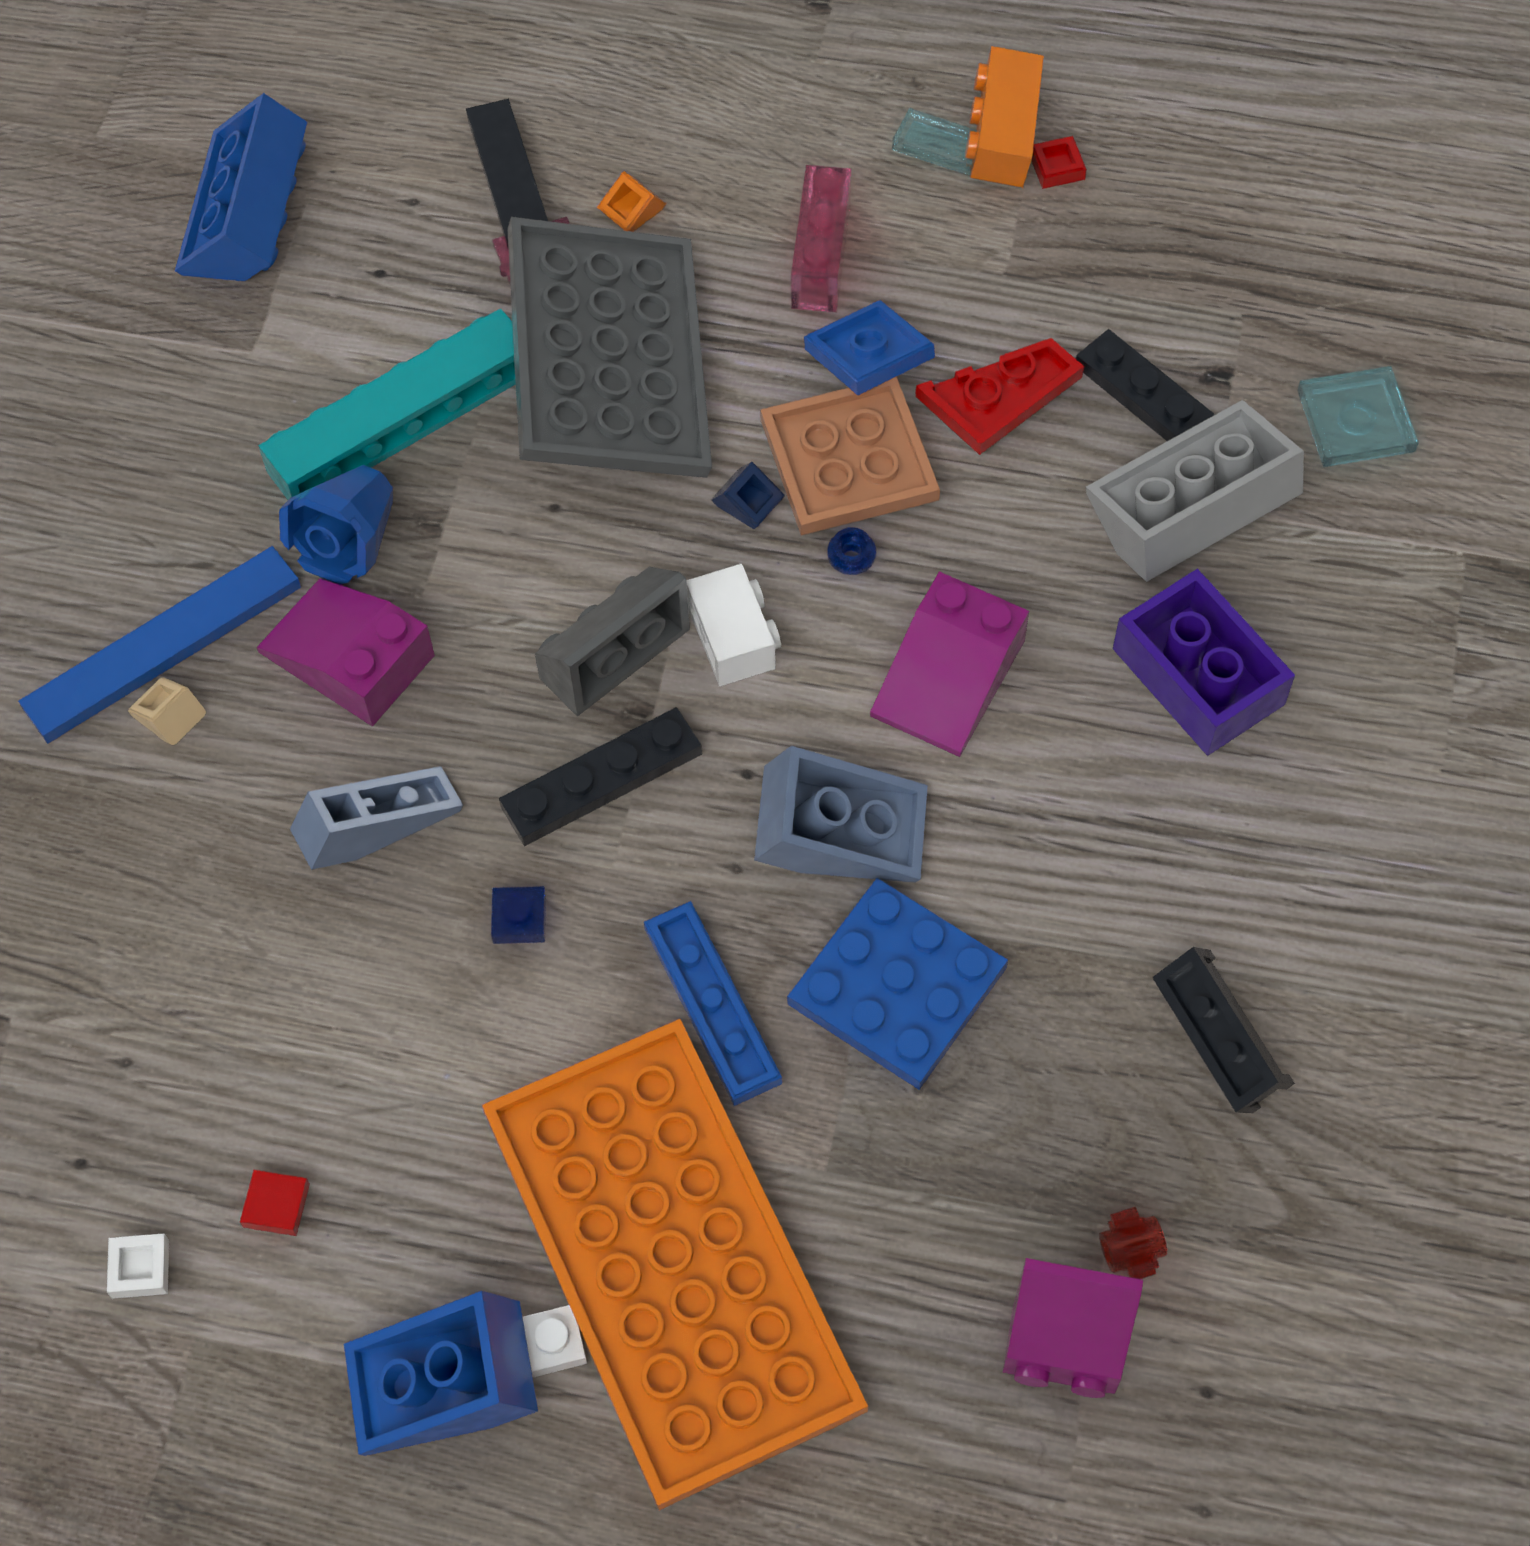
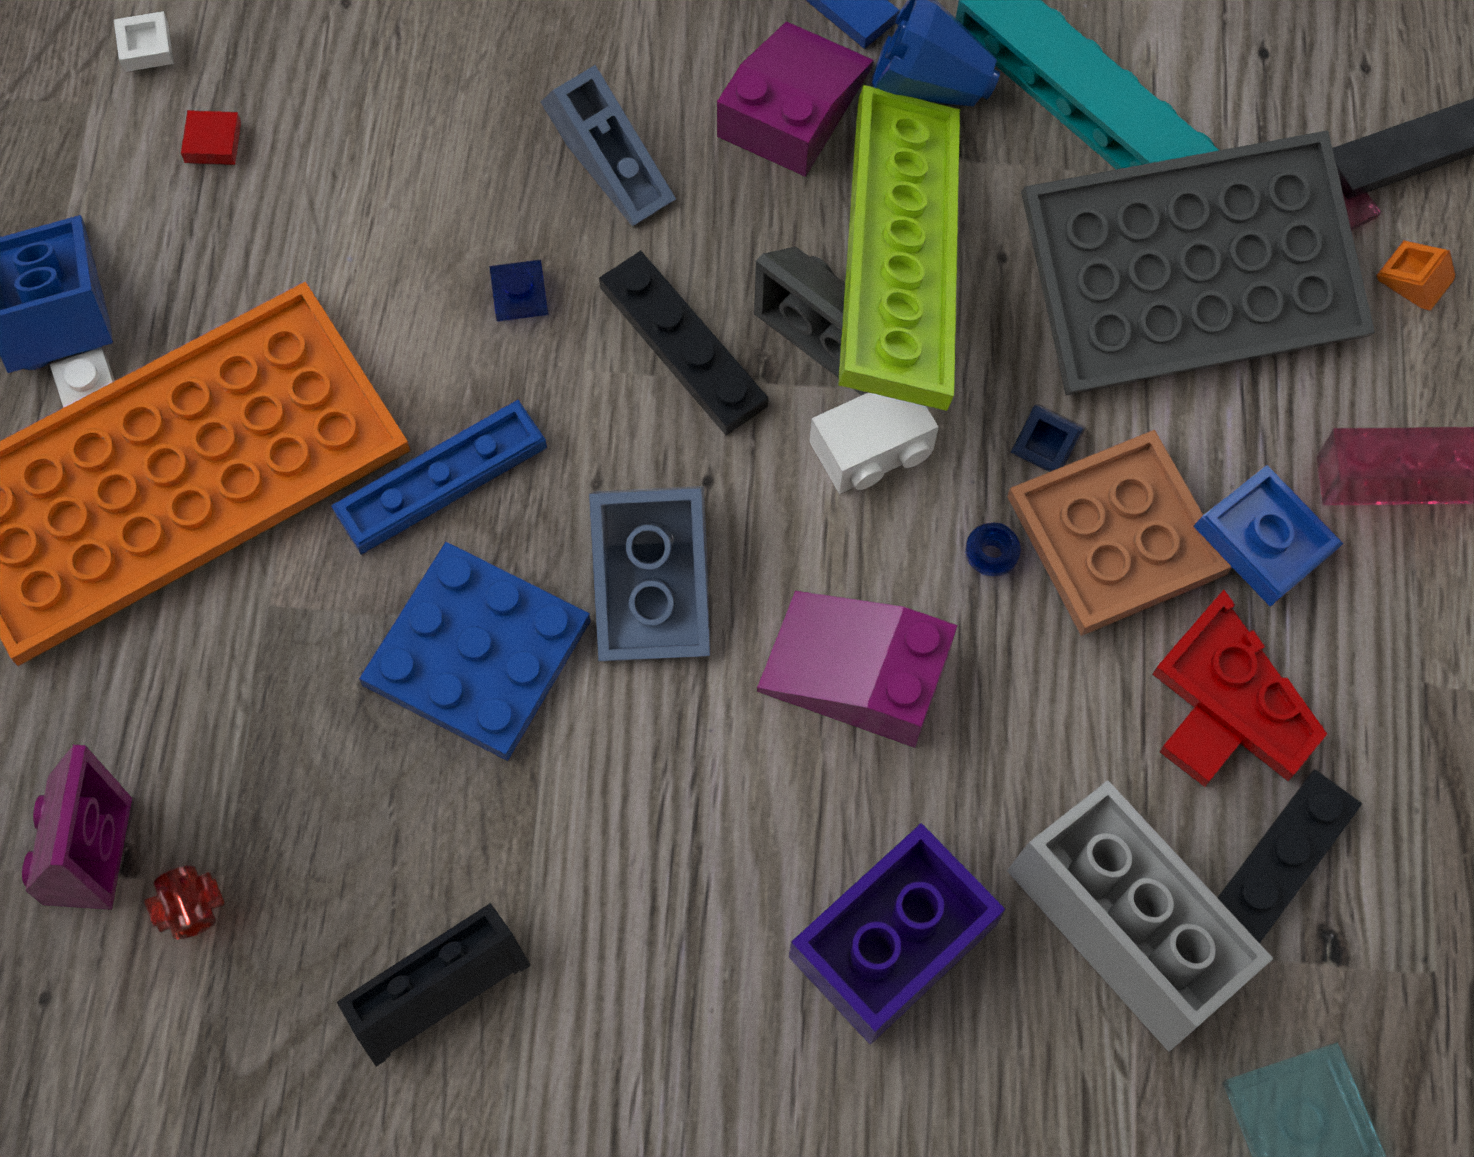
camera: 80 degrees right, 5 degrees up
(564, 554) = (902, 251): none -> lime plate
(1046, 431) = (1200, 746): none -> red tile

